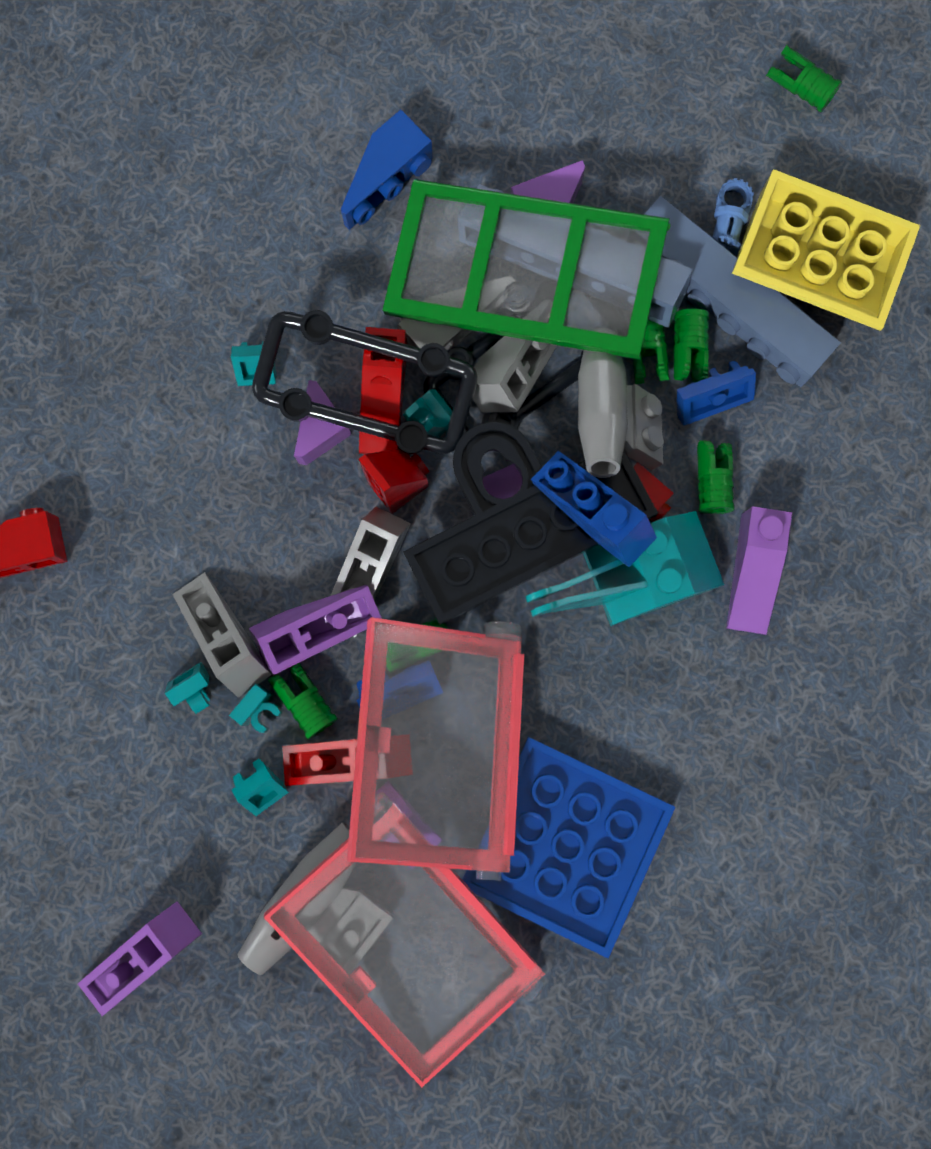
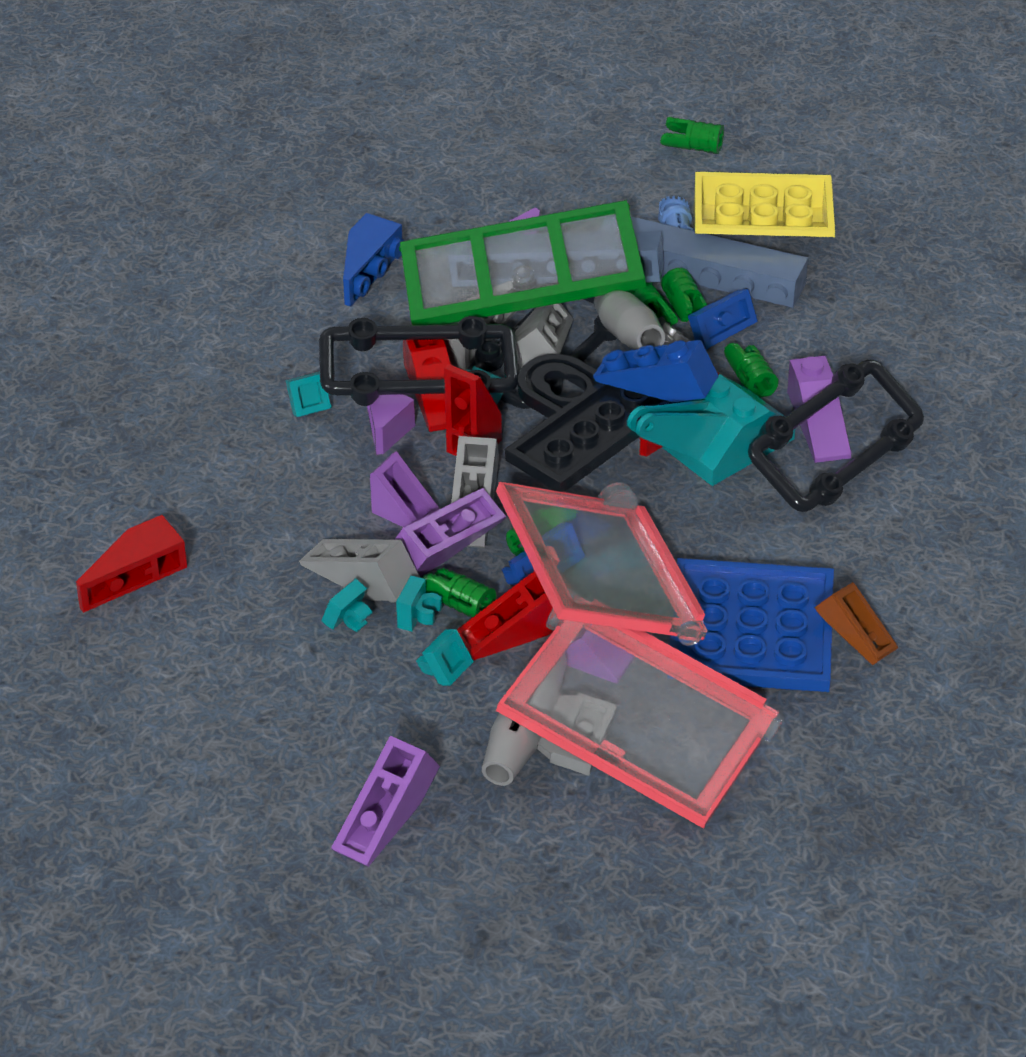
camera: 20 degrees left, 40 degrees down
(295, 554) = (398, 493): none -> medium lavender slope
(652, 872) = (857, 623): none -> dark orange slope
(819, 628) = (829, 485): none -> black bar

